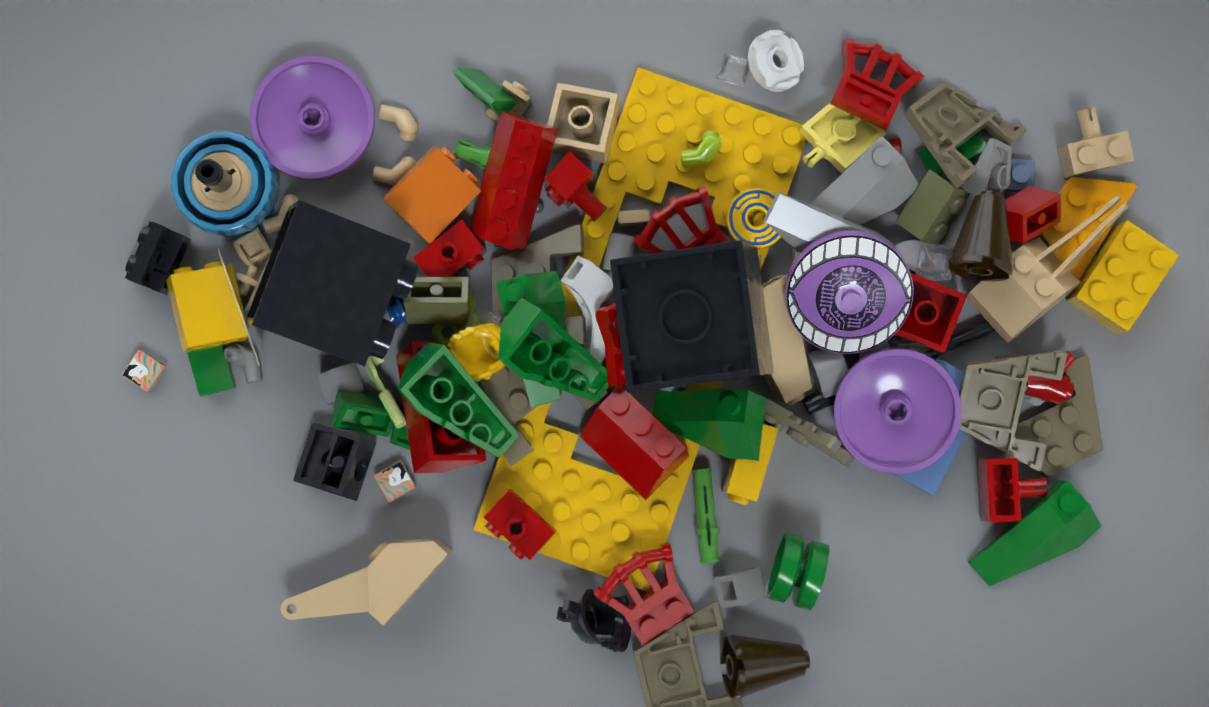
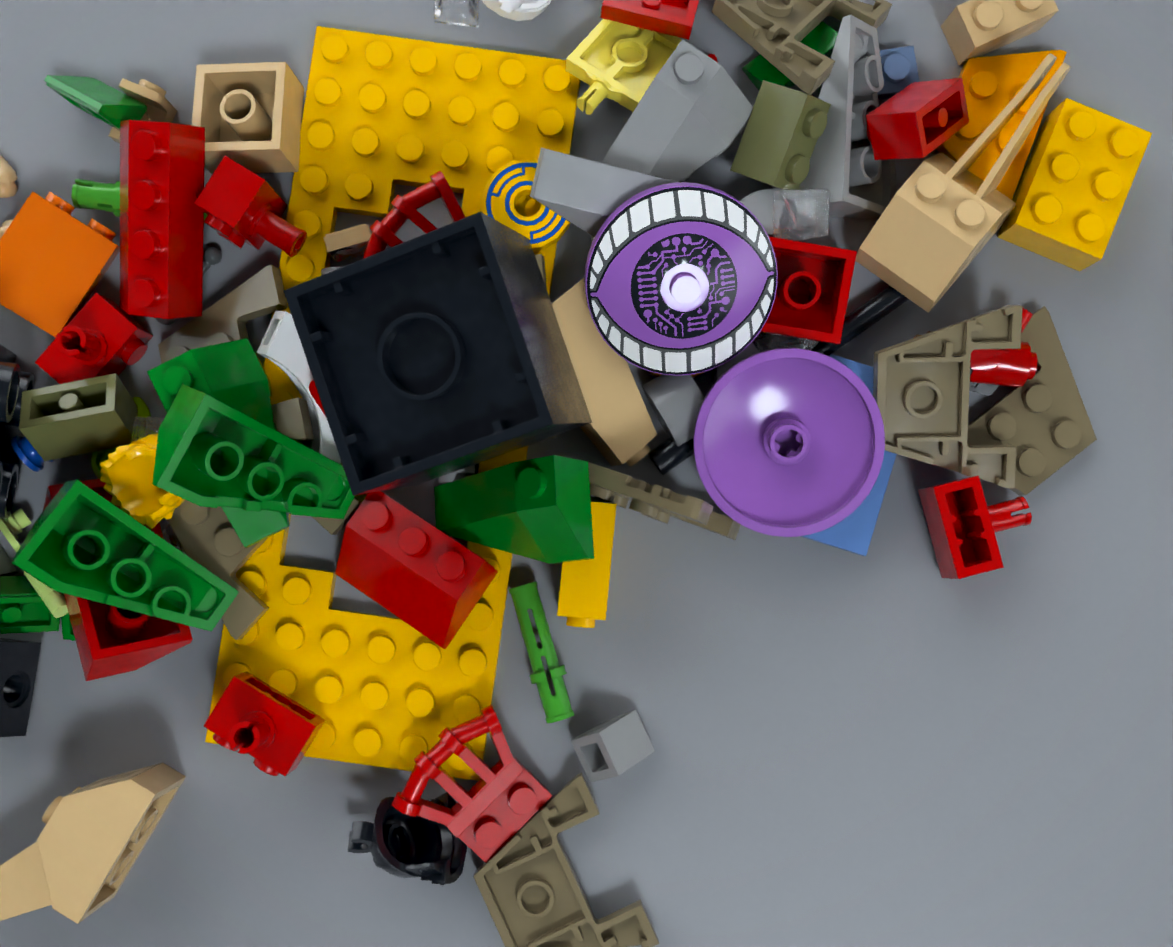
camera: 10 degrees left, 0 degrees up
(395, 481) = (77, 697): tile -> none
(705, 152) = (433, 124): lime arm -> none
(759, 664) = (663, 855): dark brown cone -> none
(798, 571) = (696, 708): green wheel -> none
(984, 240) = (866, 164): dark brown cone -> none
(1045, 531) = (1041, 573): green wedge -> none

